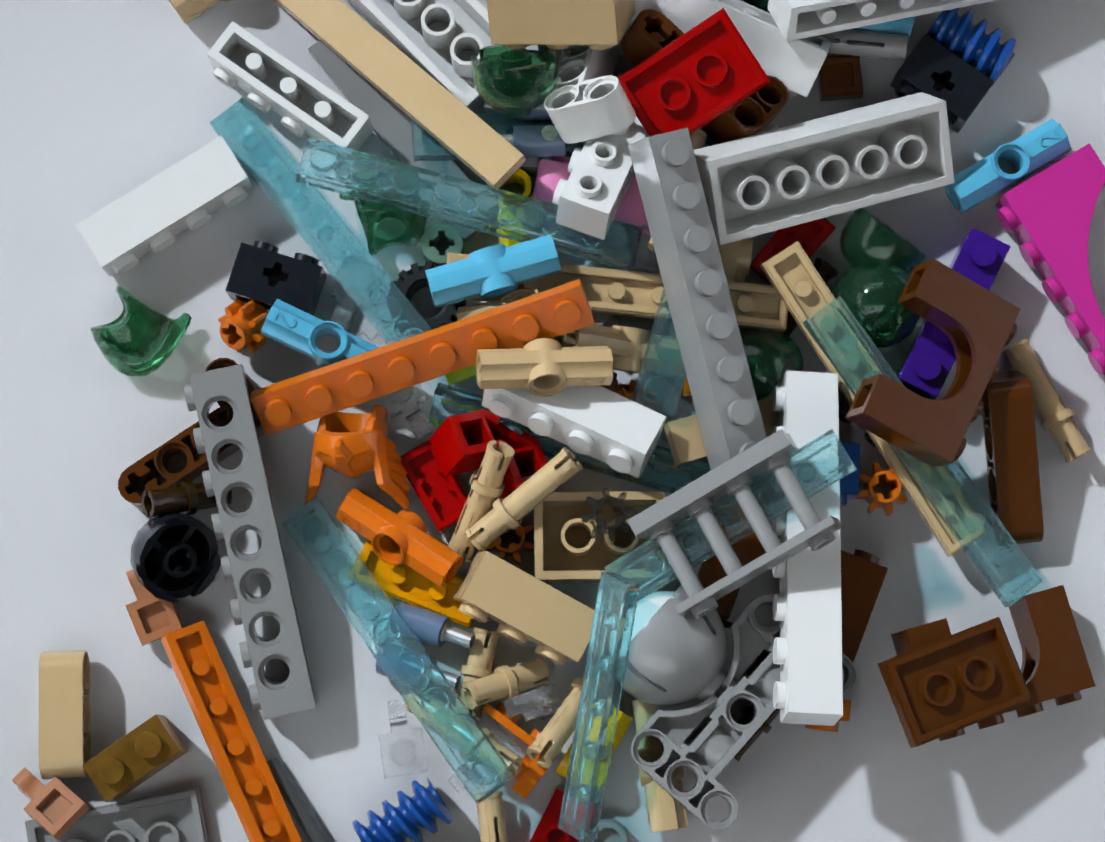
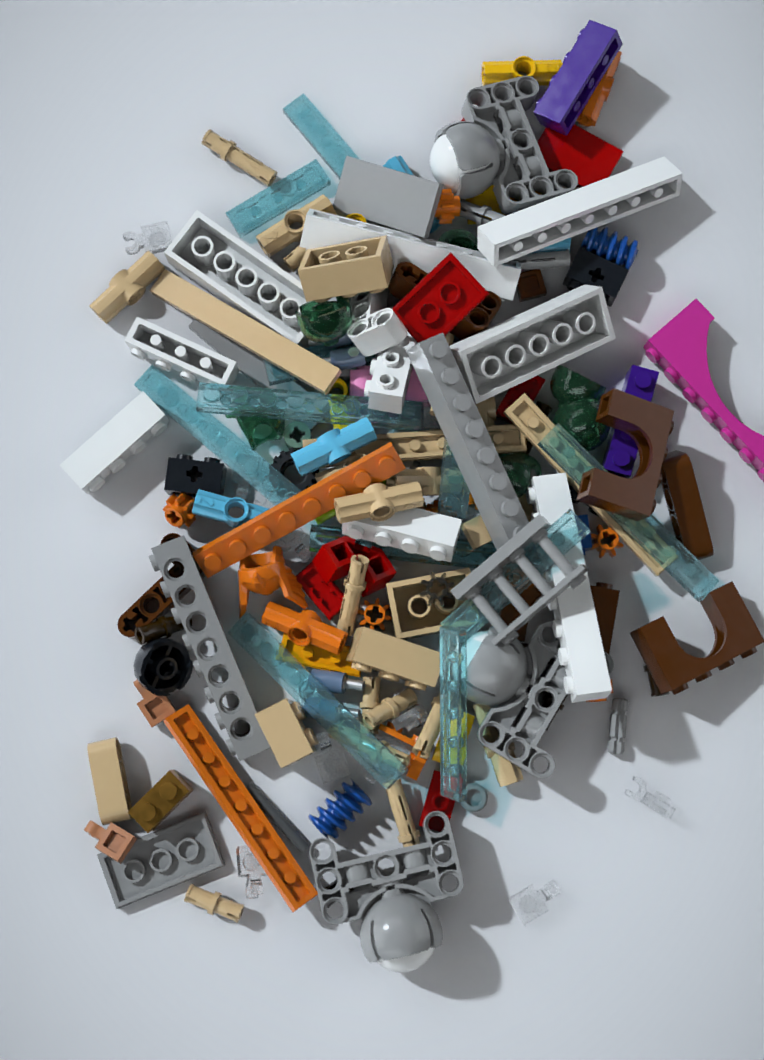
camera: 10 degrees left, 0 degrees up
(139, 337) = (113, 530): clear green piece -> none
(342, 689) = (286, 732): none -> tan brick
(509, 511) = (372, 599): tan pin -> none
(848, 773) = (618, 726): none -> light grey axle
(954, 682) = (676, 656): reddish brown tile -> none
(1028, 155) = (657, 311): medium azure piece -> none
(1048, 402) = (706, 474): tan pin -> none

